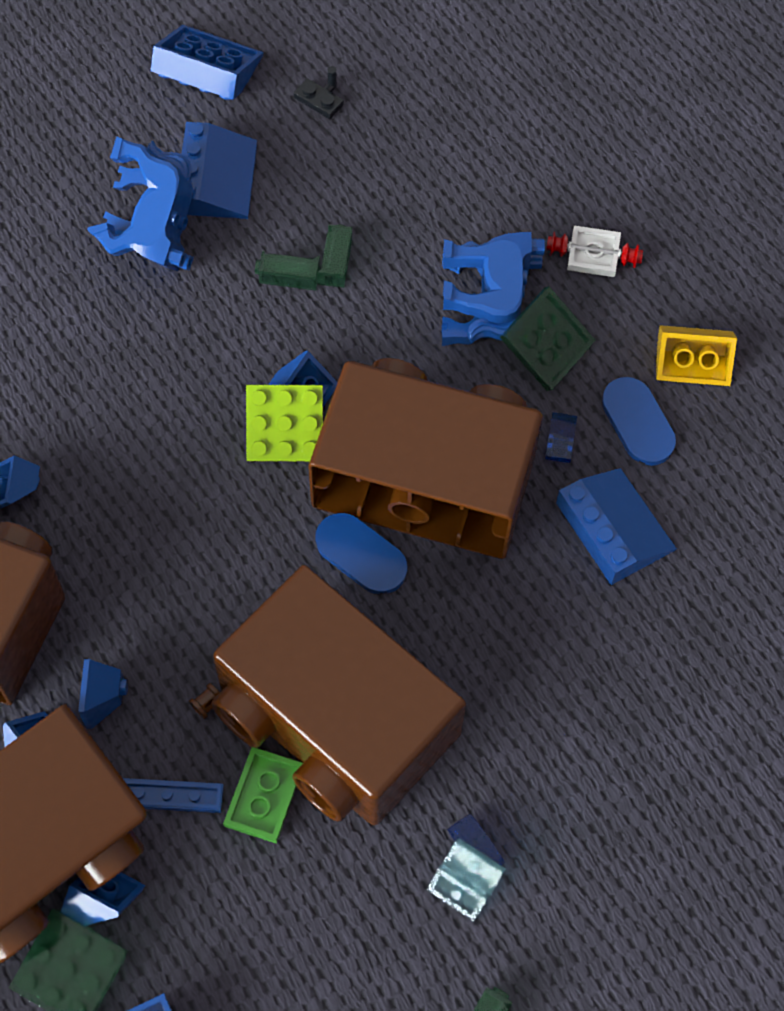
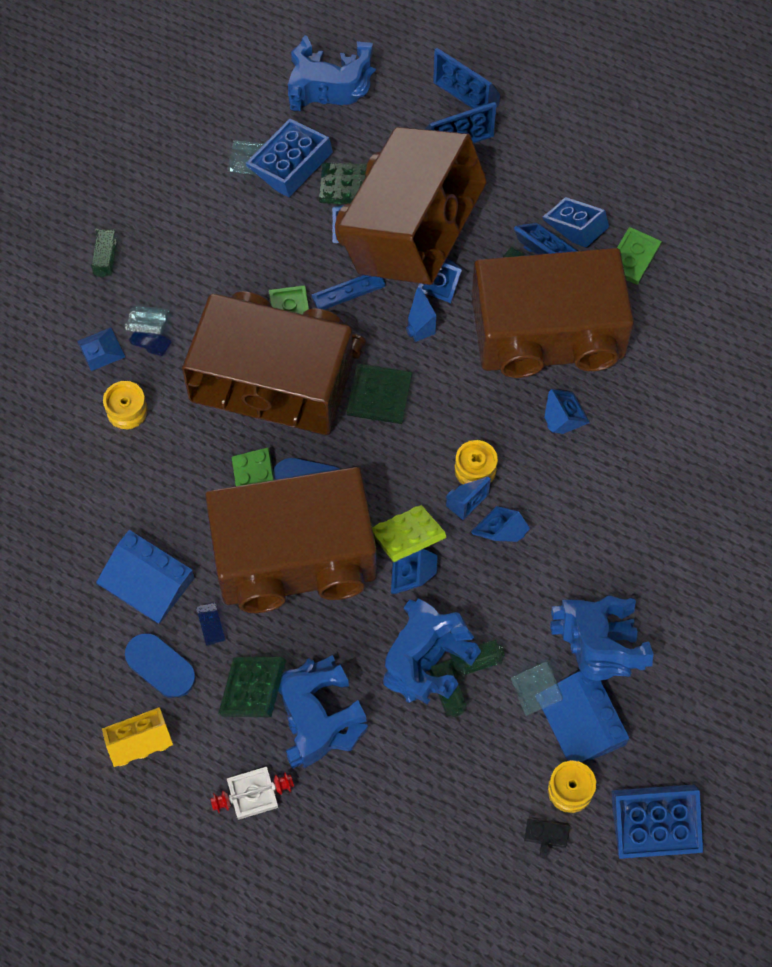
camera: 155 degrees right, 0 degrees up
(154, 470) = (475, 461): none -> yellow wheel
(175, 390) = (502, 525): none -> blue slope
(188, 433) = (468, 497): none -> blue slope
(207, 616) = (379, 394): none -> clear green plate
(244, 214) = (537, 688): none -> clear light blue slope
(270, 114) = (567, 775): none -> yellow wheel
(347, 291) = (421, 647): none -> blue piece
(428, 583) = (253, 467): none -> bright green plate
(537, 752) = (125, 405): none -> yellow wheel
(549, 869) = (101, 349): none -> blue slope

